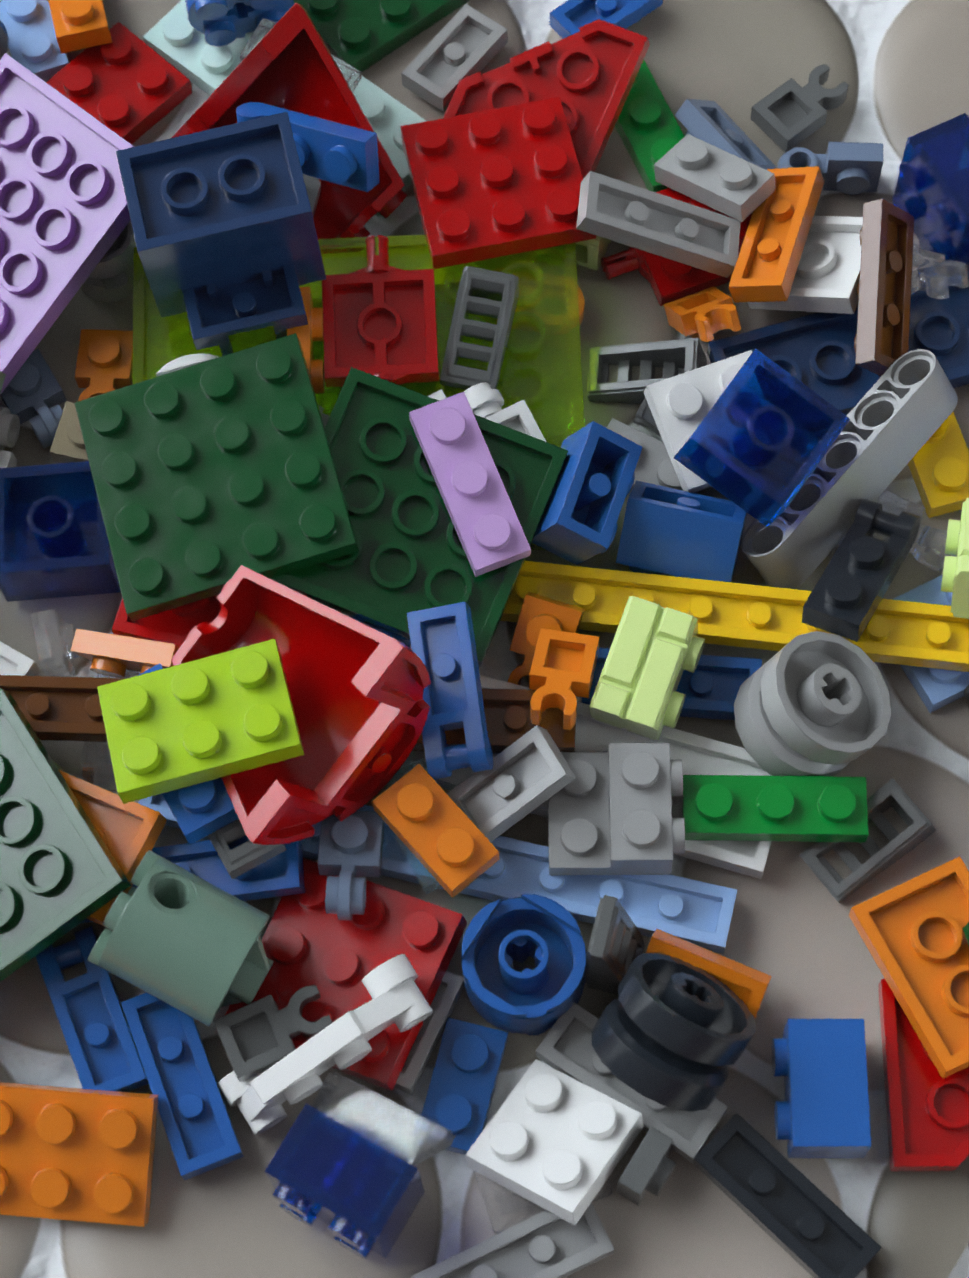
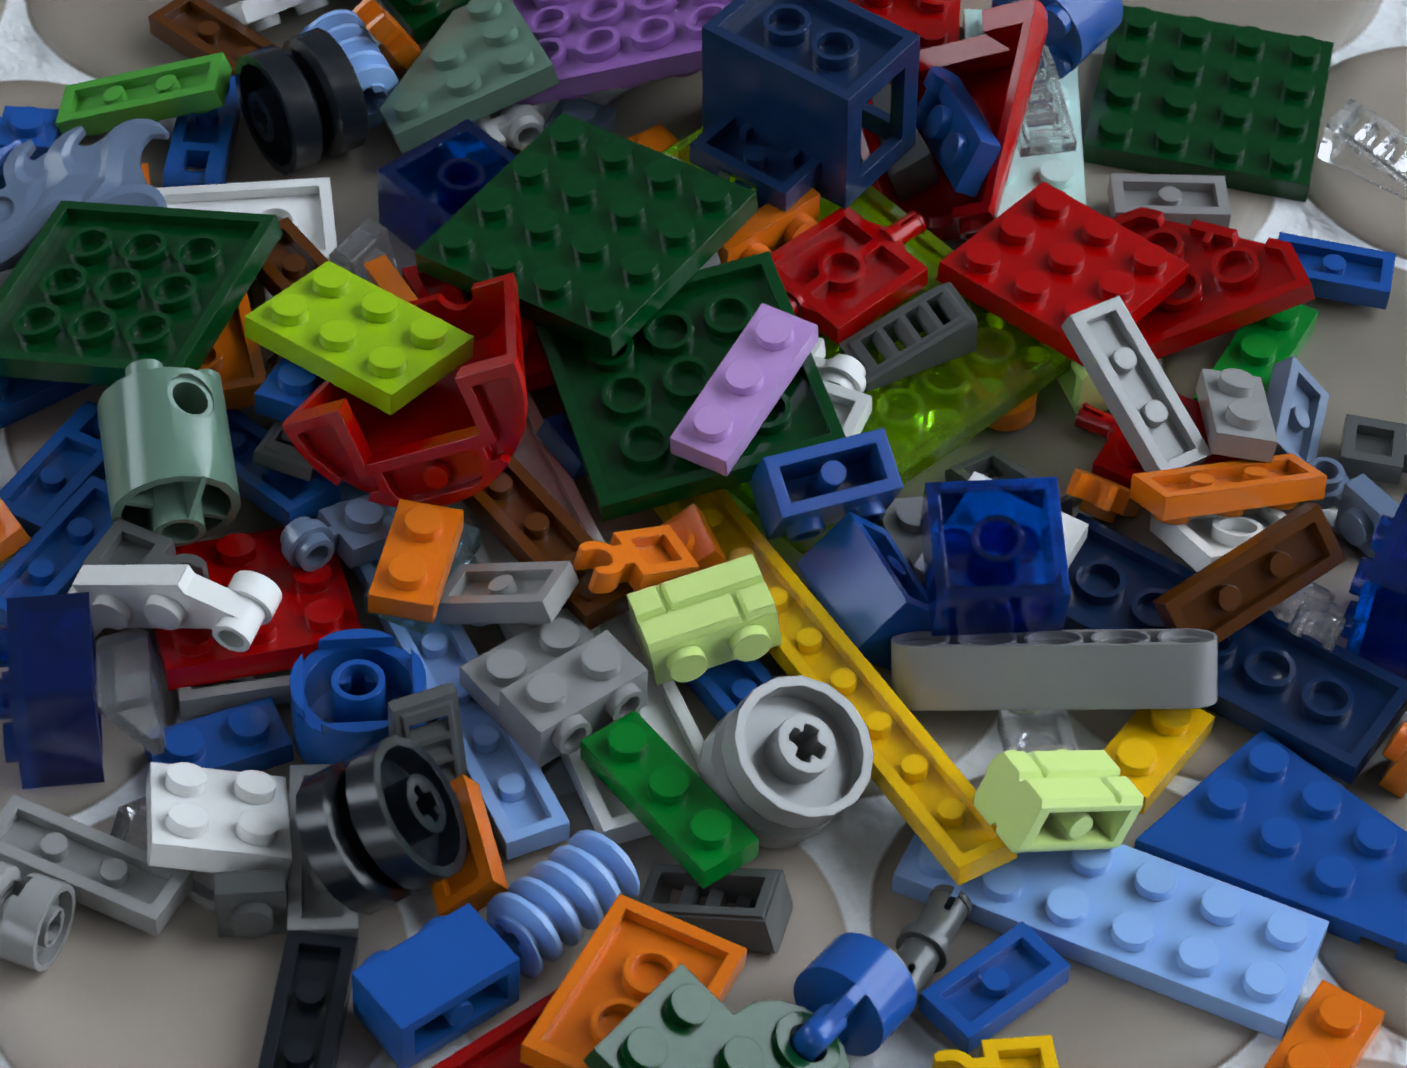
camera: 45 degrees right, 20 degrees down
(447, 648) = (545, 488): blue plate -> none
(803, 948) = (561, 898): none -> light blue piece
(860, 571) = (954, 718): black plate -> none

